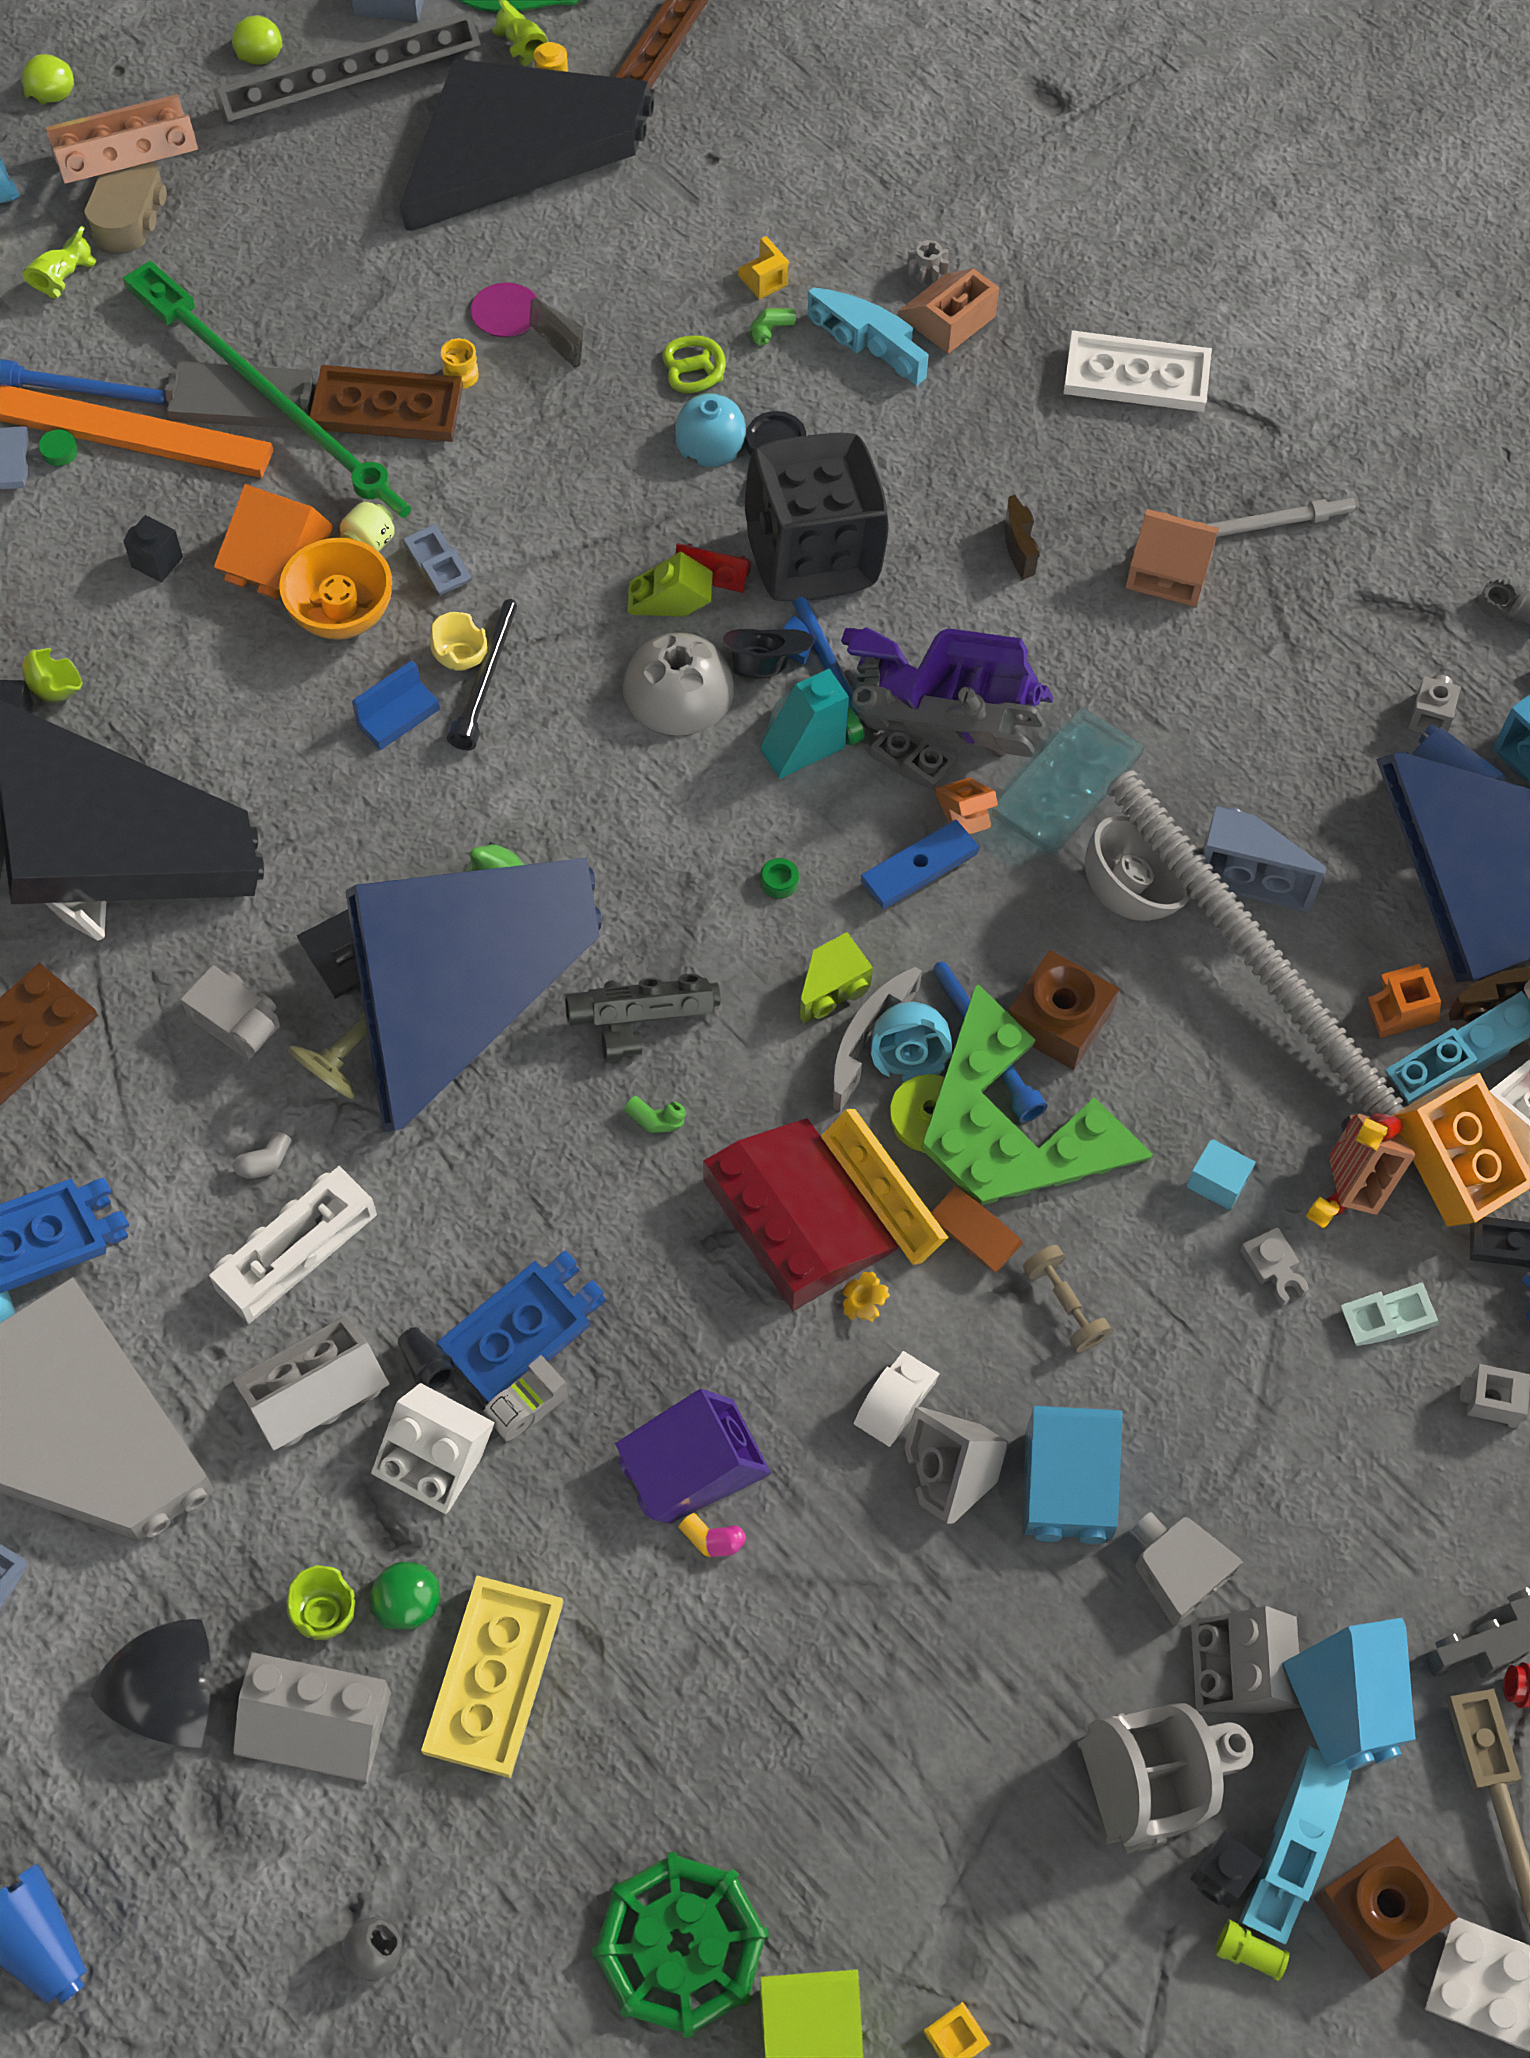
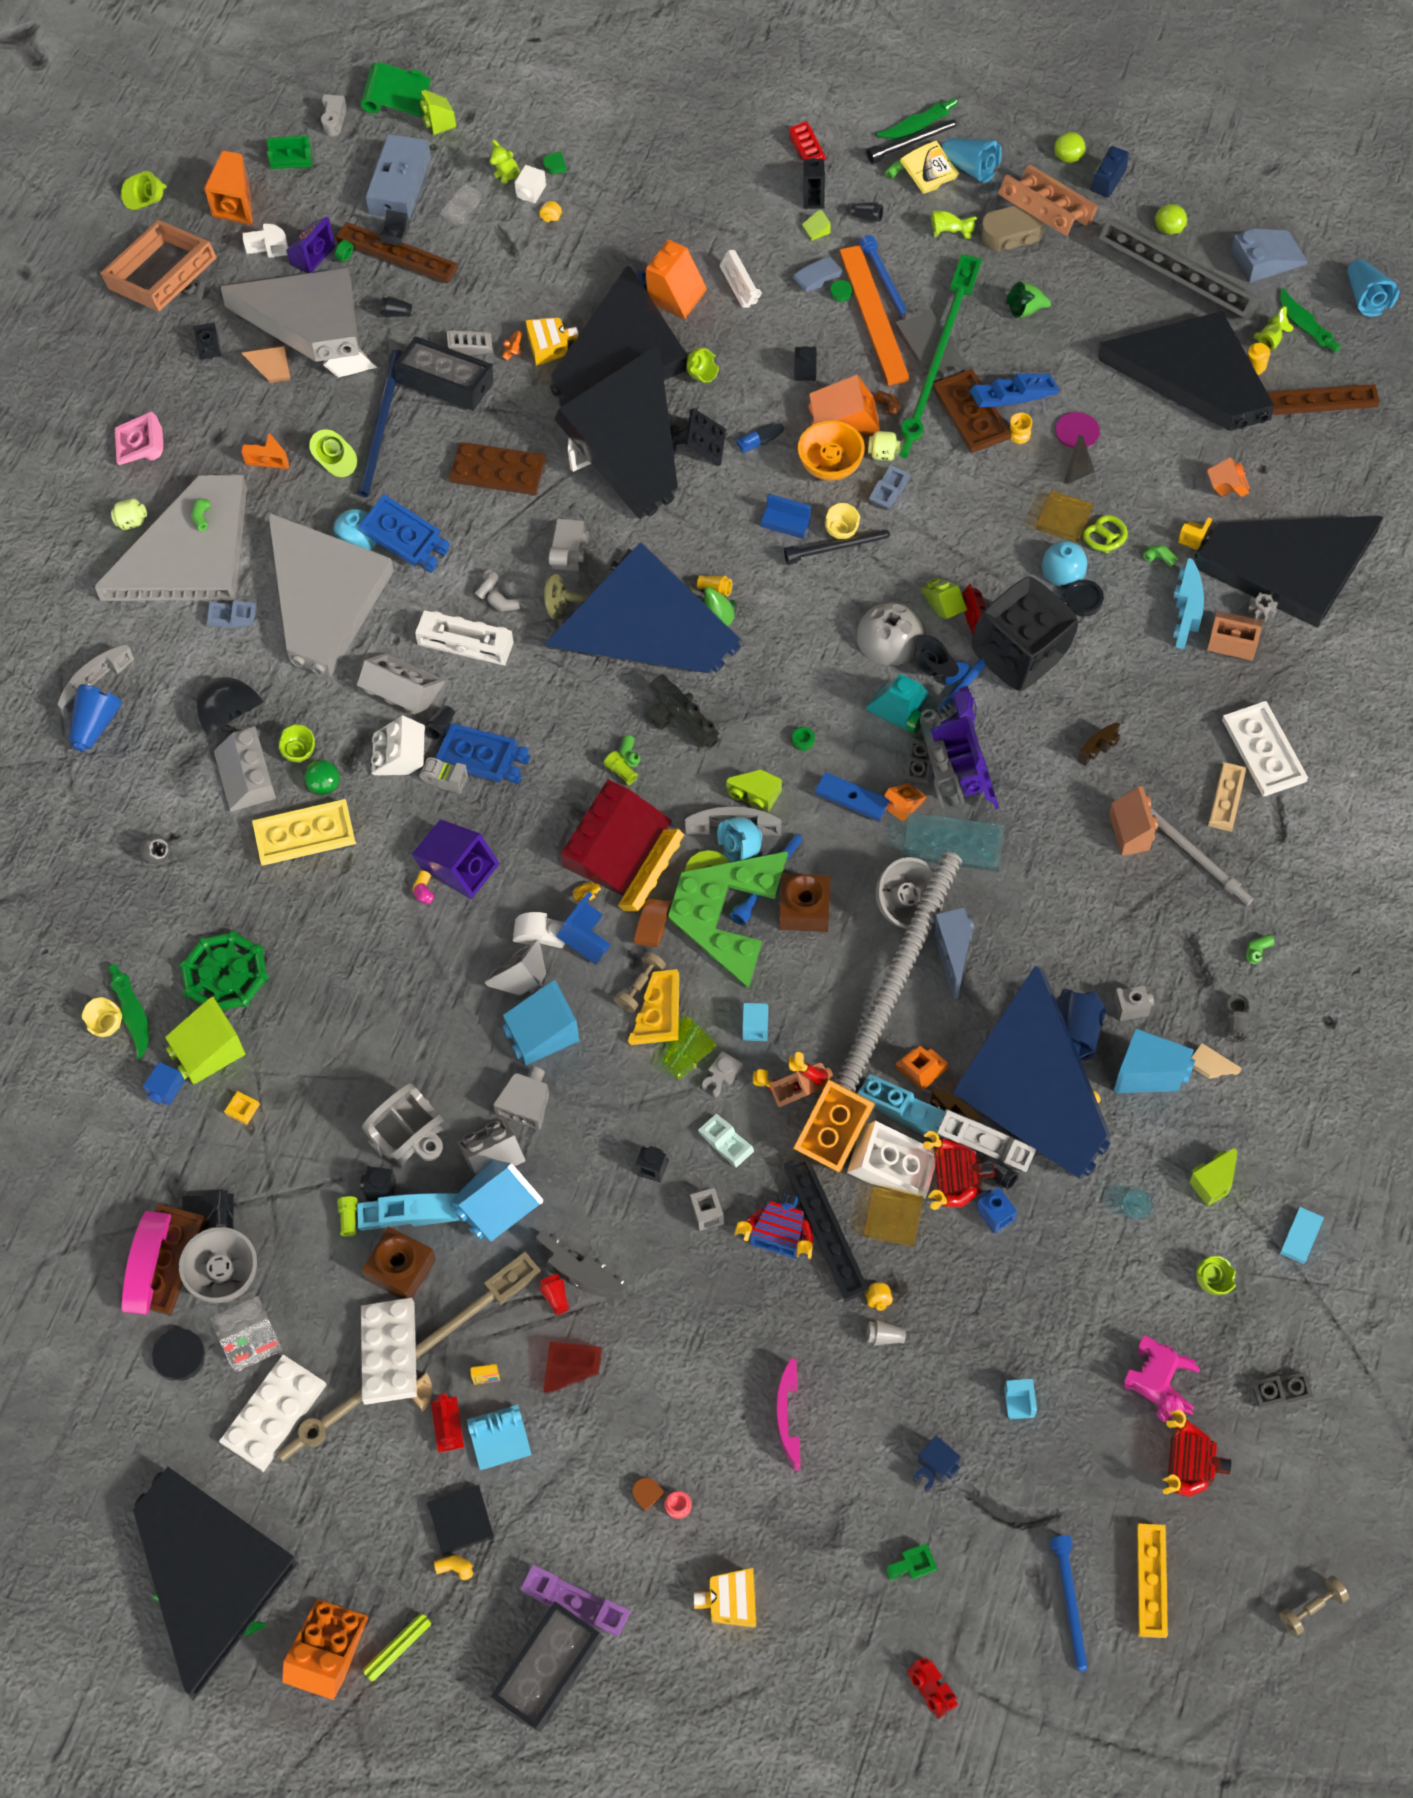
camera: 65 degrees right, 0 degrees up
(128, 57) = (1109, 171): none -> dark blue brick
(180, 733) = (701, 436): none -> black plate
(218, 1163) = (490, 579): none -> light grey arm
(227, 668) = (759, 437): none -> piece
(256, 251) = (1025, 299): none -> hat
(294, 484) = (890, 400): none -> reddish brown arm
(395, 338) = (1016, 391): none -> blue slope
(445, 854) = (719, 583): none -> yellow cone
(633, 392) = (1064, 516): none -> clear yellow tile
(676, 1140) = (616, 764): none -> lime pin
(713, 188) = (1229, 478): none -> orange brick
(879, 197) = (1292, 560): none -> black slope
(937, 1342) = (578, 931): none -> blue panel
(1128, 1295) = (660, 1010): none -> yellow wing
(1180, 448) = (1227, 796): none -> tan tile
(1212, 1289) = (690, 1047): none -> clear neon green slope
(1385, 1434) = (652, 1160): none -> black brick
(1422, 536) = (1256, 947): none -> bright green arm

